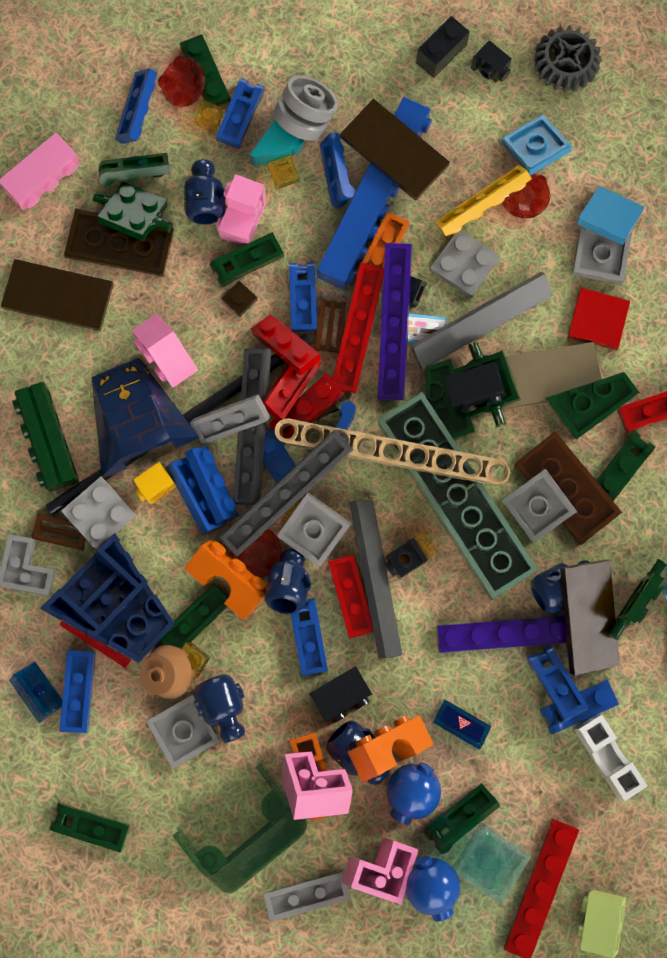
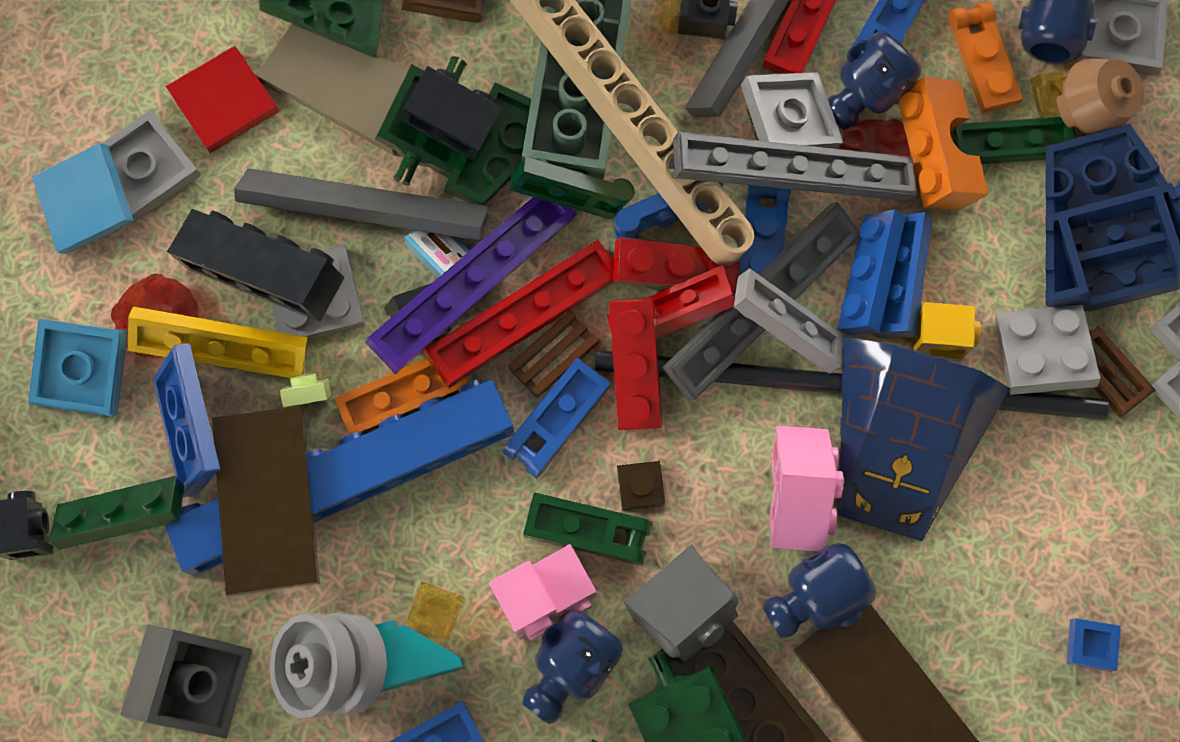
camera: 140 degrees left, 5 degrees down
(46, 437) = (1046, 503): dark green brick -> none
(118, 310) = (825, 589): none -> dark blue piece
(175, 256) = (684, 606): none -> dark grey torso
(243, 655) = (985, 57): none -> orange plate
(336, 170) = (364, 549): blue plate -> none
(362, 61) = (186, 681): none -> dark grey slope
(387, 404) = (571, 188): none -> dark green plate
(425, 214) = (305, 390): none -> yellowish green plate
(442, 46) = (60, 605): black brick -> none
(455, 99) = (117, 512): none -> dark green plate
(462, 155) = (186, 420): none -> blue tile
(499, 246) = (256, 263): none -> black brick

